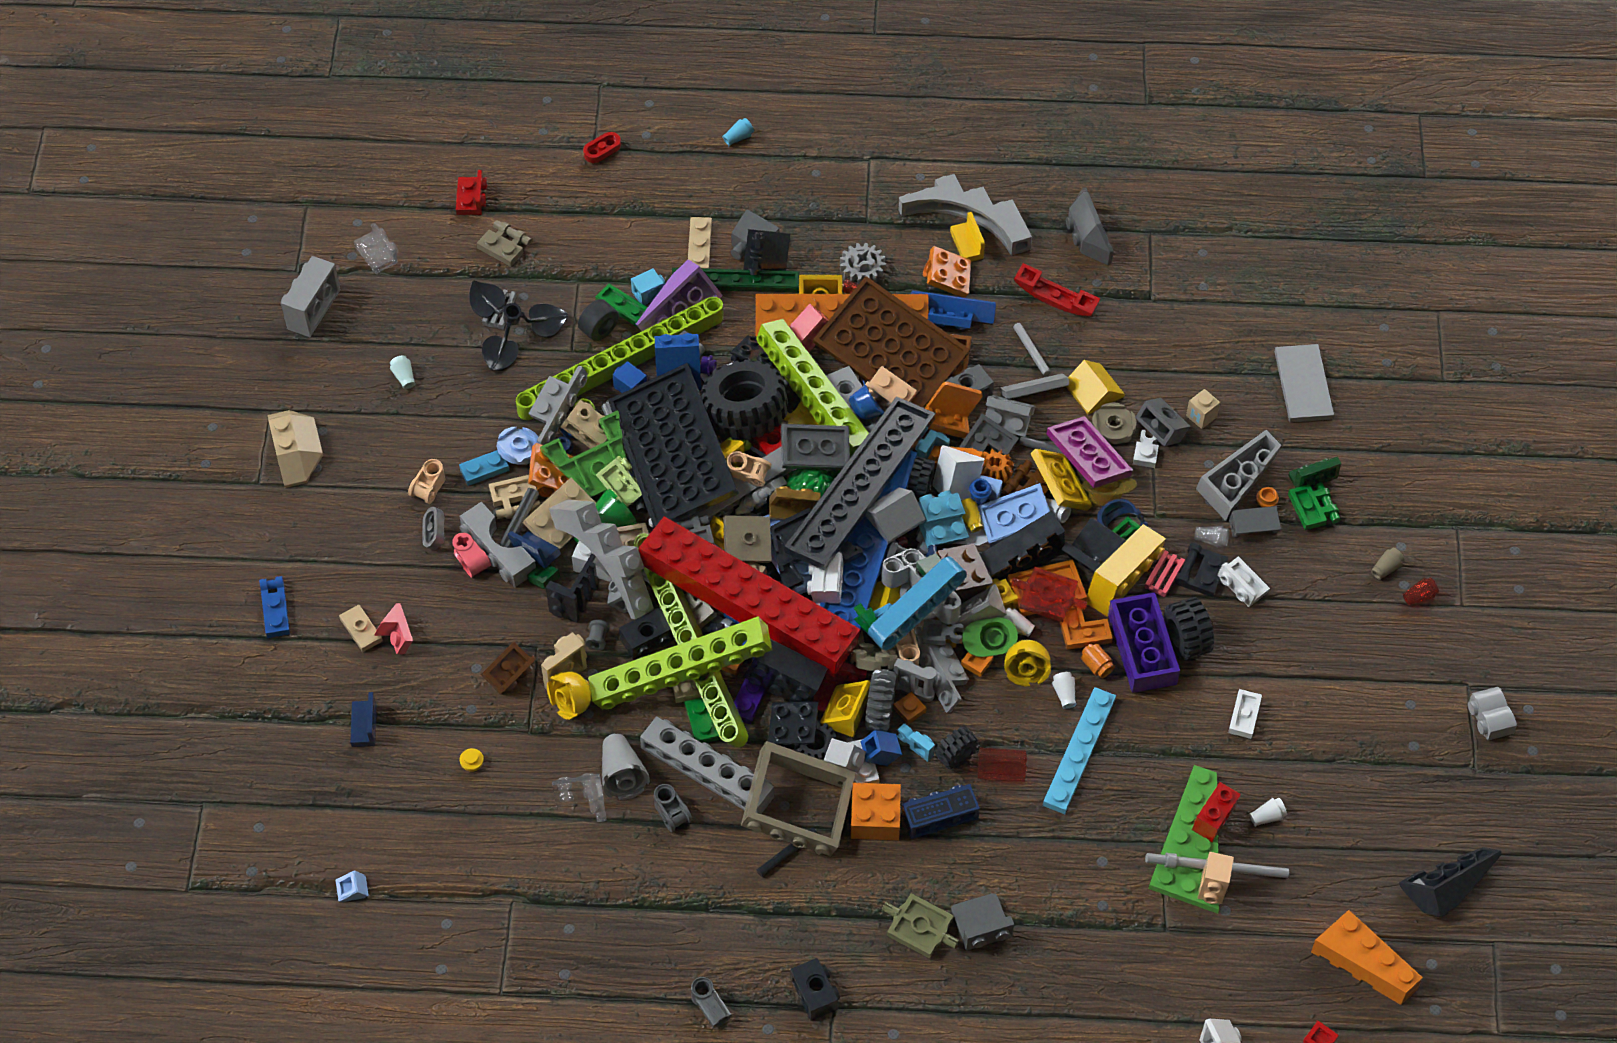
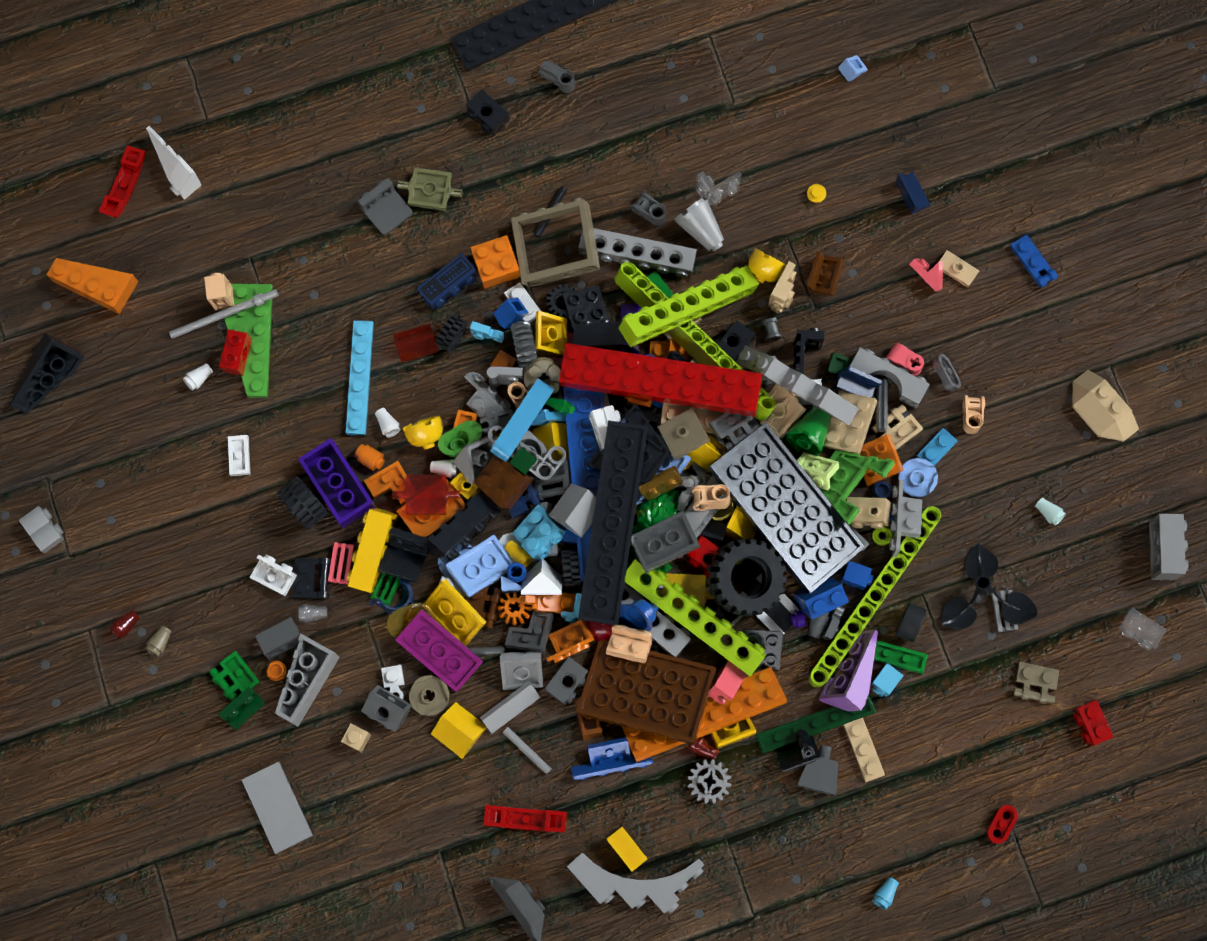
camera: 160 degrees right, 20 degrees up
(845, 755) = (534, 293): brick -> none
(948, 271) = (629, 801): orange plate -> none

